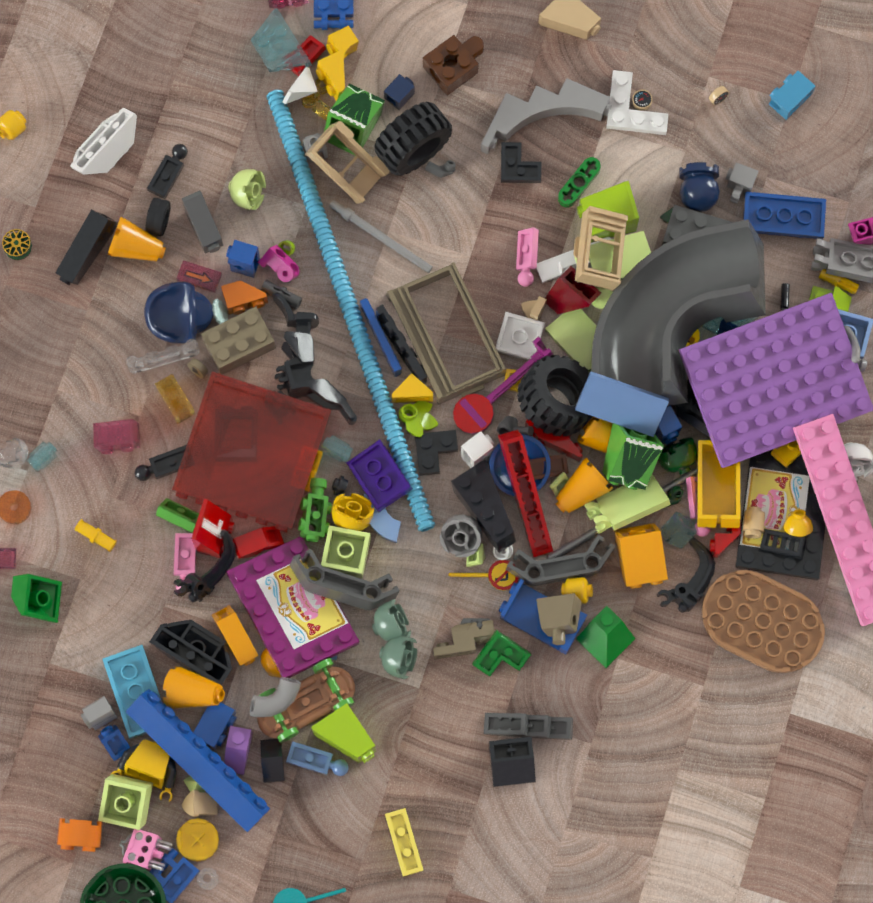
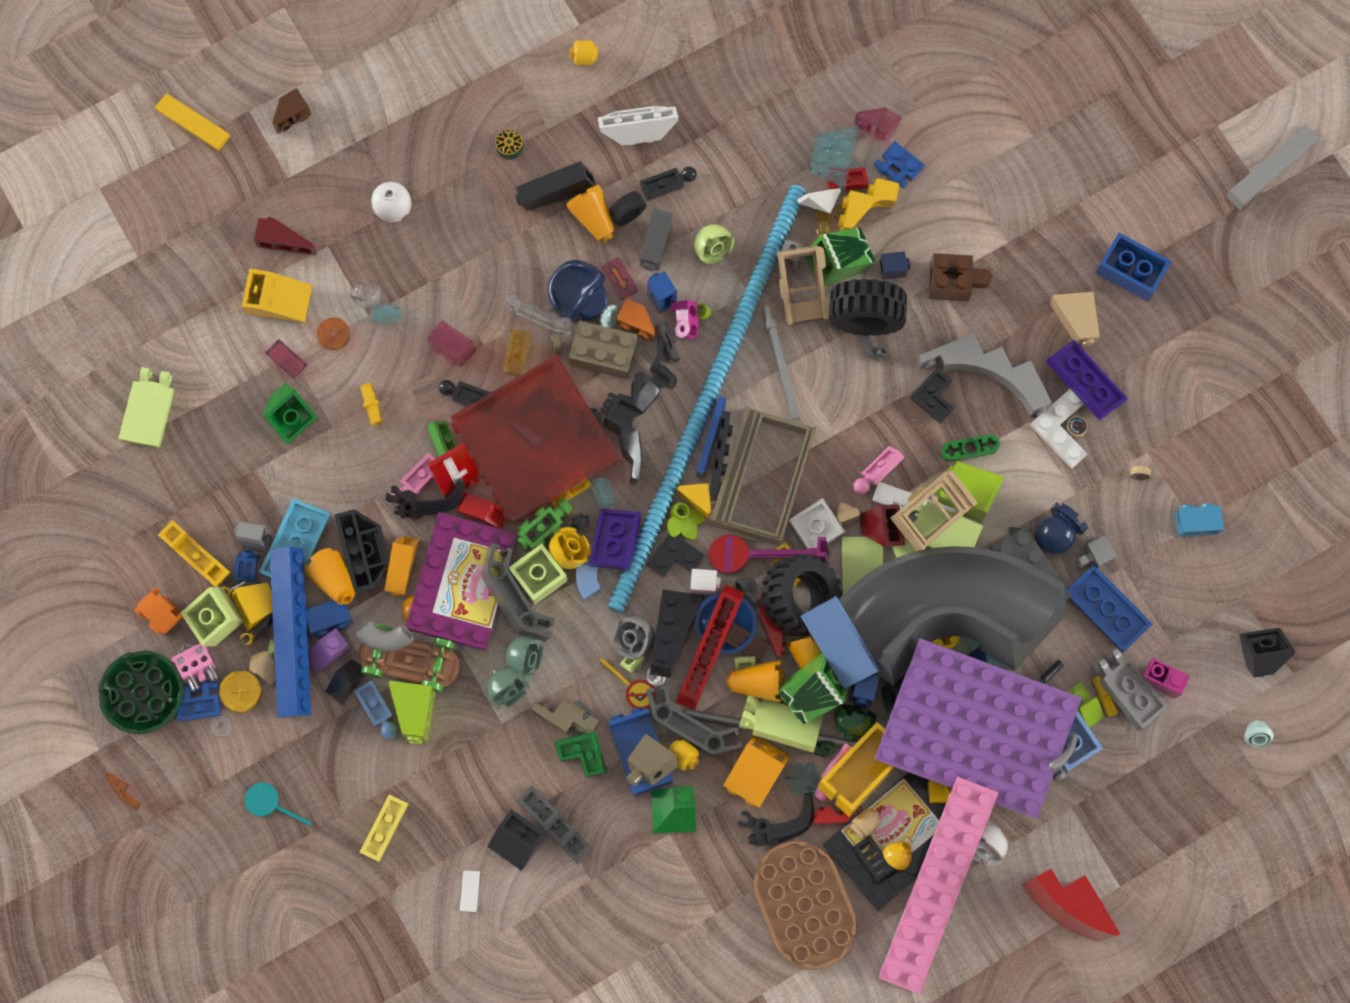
camera: 40 degrees right, 0 degrees up
(64, 768) = (194, 554): none -> yellow slope
(510, 831) = (469, 891): none -> white sticker
(619, 59) = (1086, 380): none -> dark purple tile

